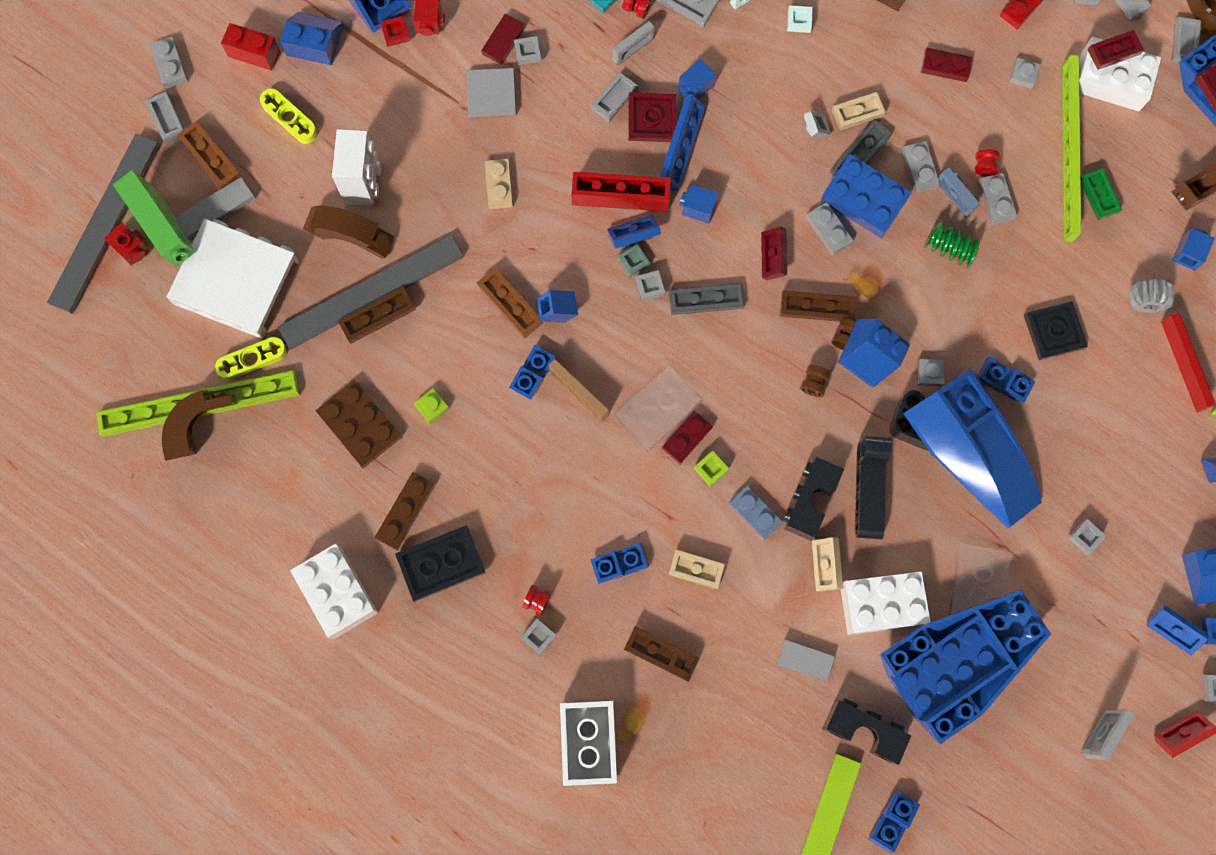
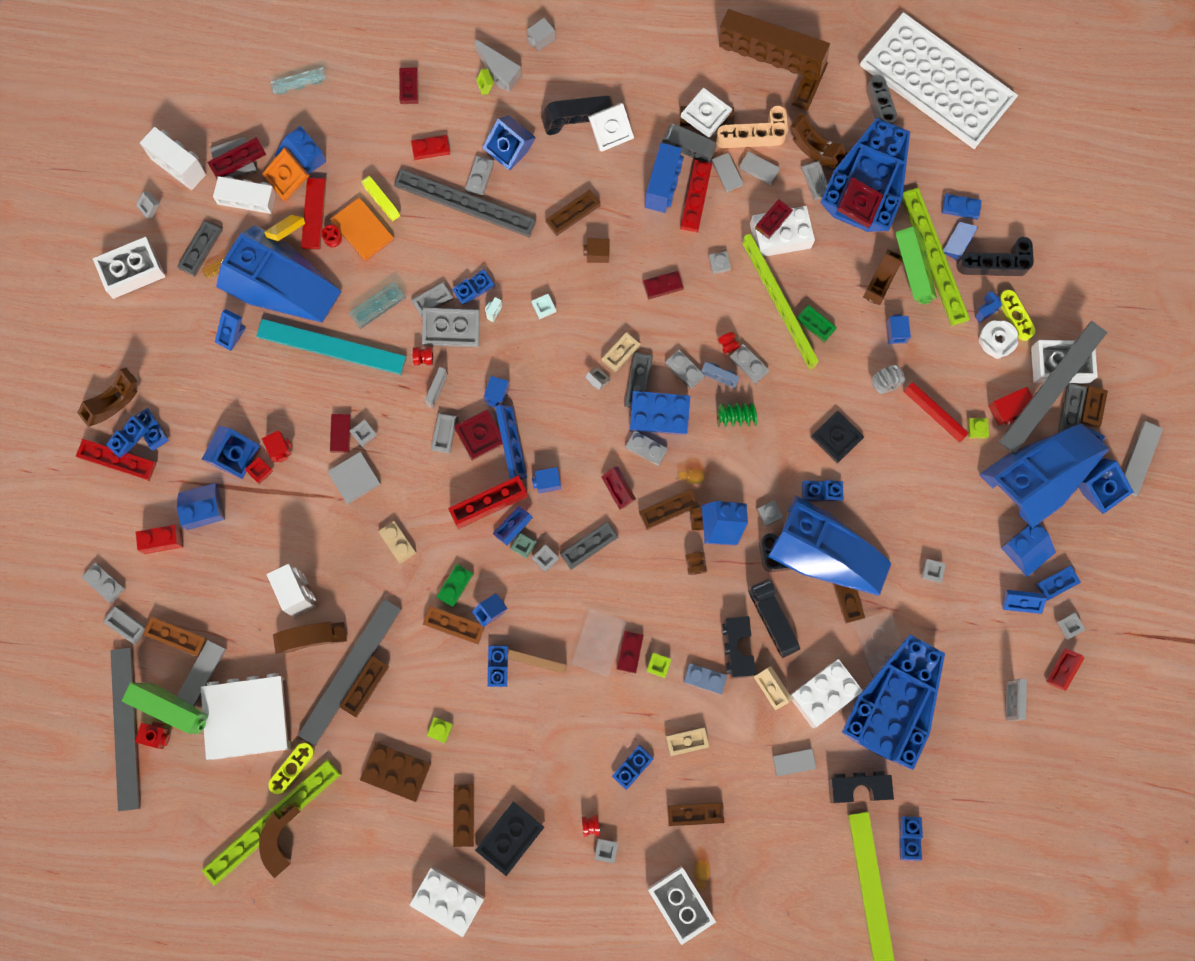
camera: 30 degrees left, 0 degrees up
(285, 106) = (203, 566): neon yellow beam -> none
(535, 262) = (455, 585): none -> green plate
(967, 518) = (849, 603): none -> reddish brown plate

